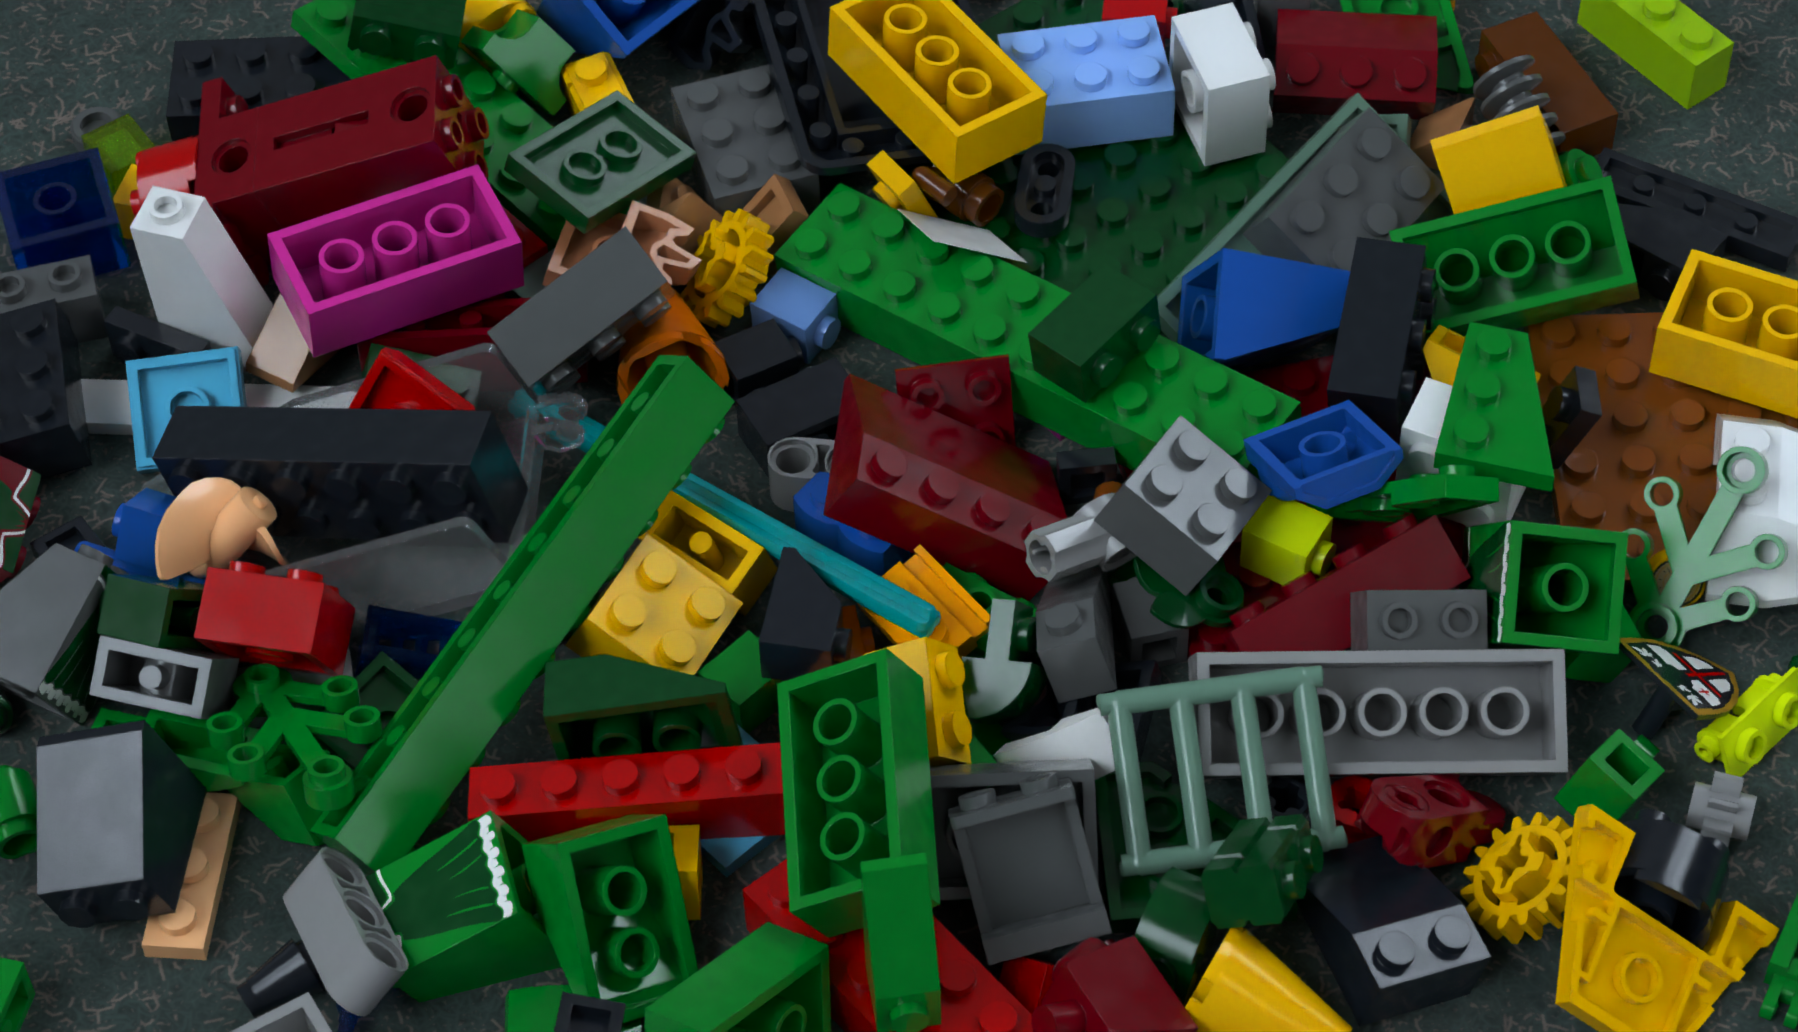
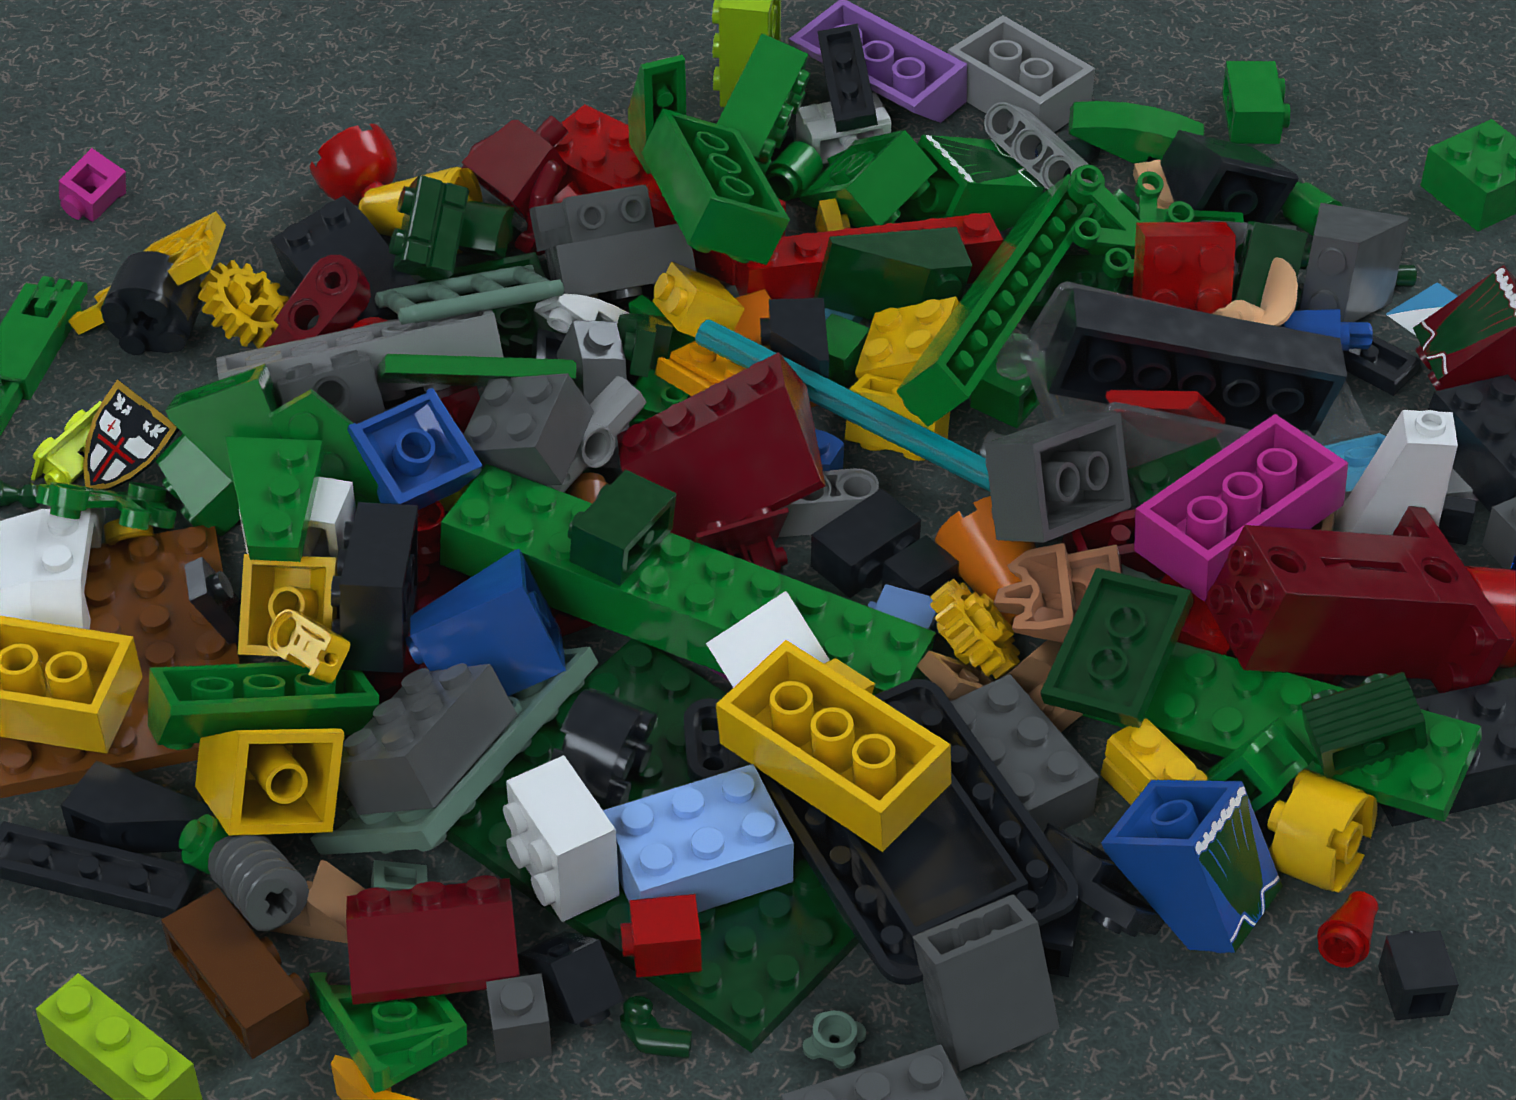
camera: 165 degrees right, 5 degrees down
(175, 976) = (1128, 128): none -> green slope
(1161, 167) = (606, 743): none -> black brick
(1232, 593) = (465, 369): none -> green tile
(1461, 287) = (311, 645): none -> yellow piece
(1613, 776) = (180, 365): green brick -> none
(1721, 808) = (101, 372): light grey gear -> none

